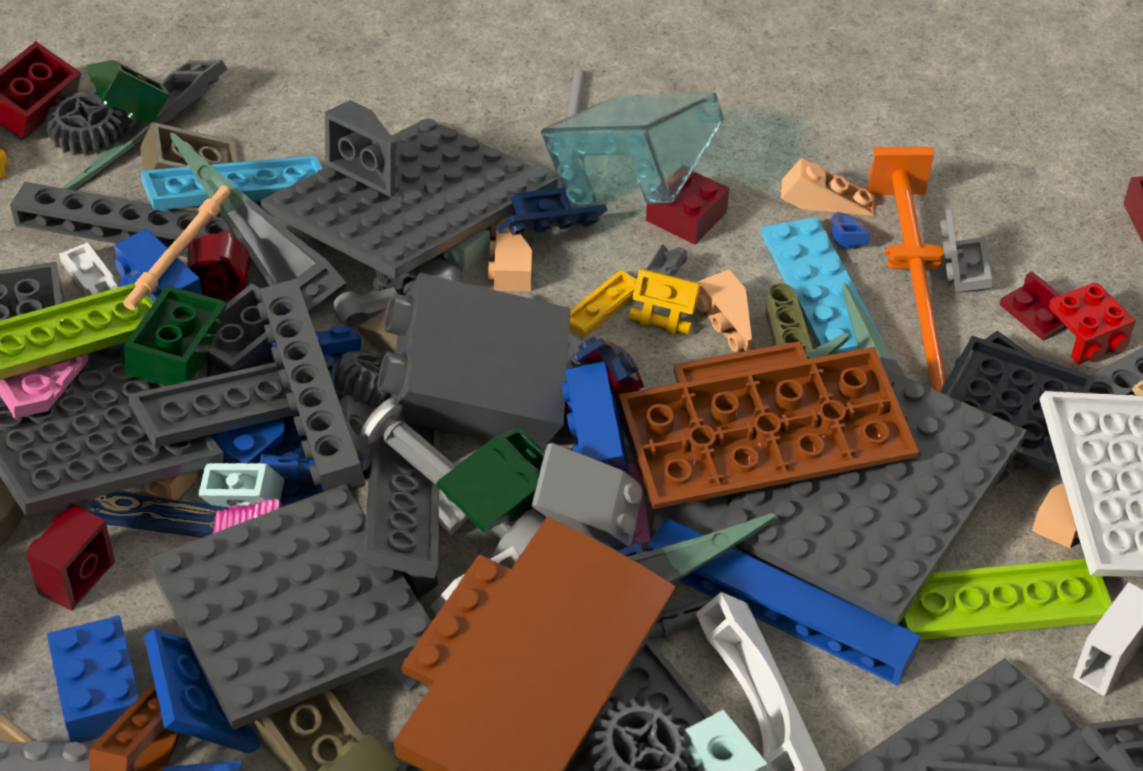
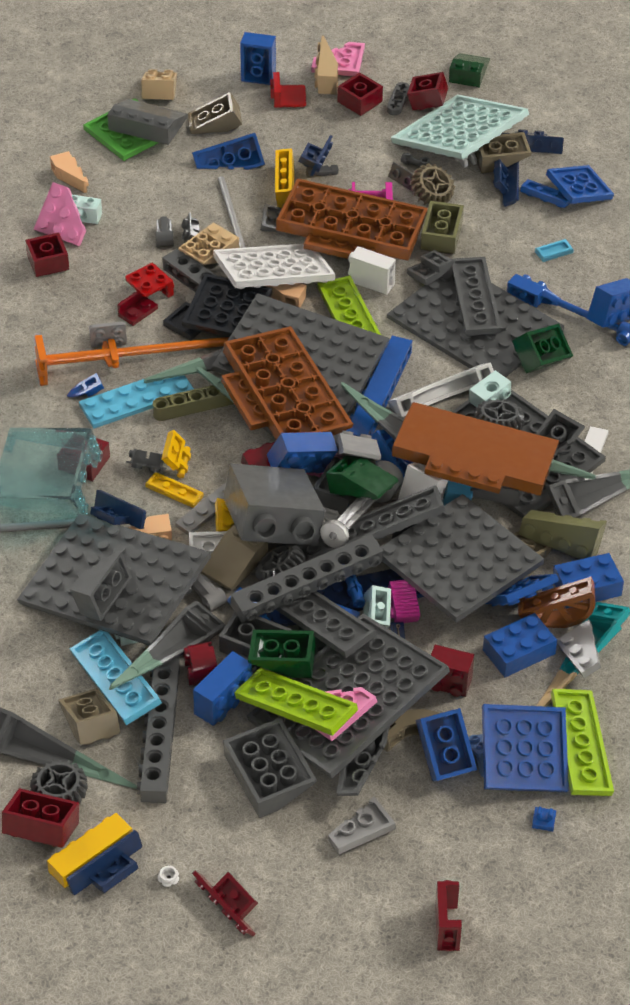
camera: 100 degrees left, 0 degrees up
(87, 269) = (210, 740): white hinge -> none
(128, 90) = (37, 750): dark green slope -> none
(149, 281) = (168, 662): light nougat bar -> none
(616, 358) = (264, 445): dark blue bracket -> none
(726, 305) = (183, 425): light nougat slope -> none
(820, 190) = (57, 398): light nougat slope -> none

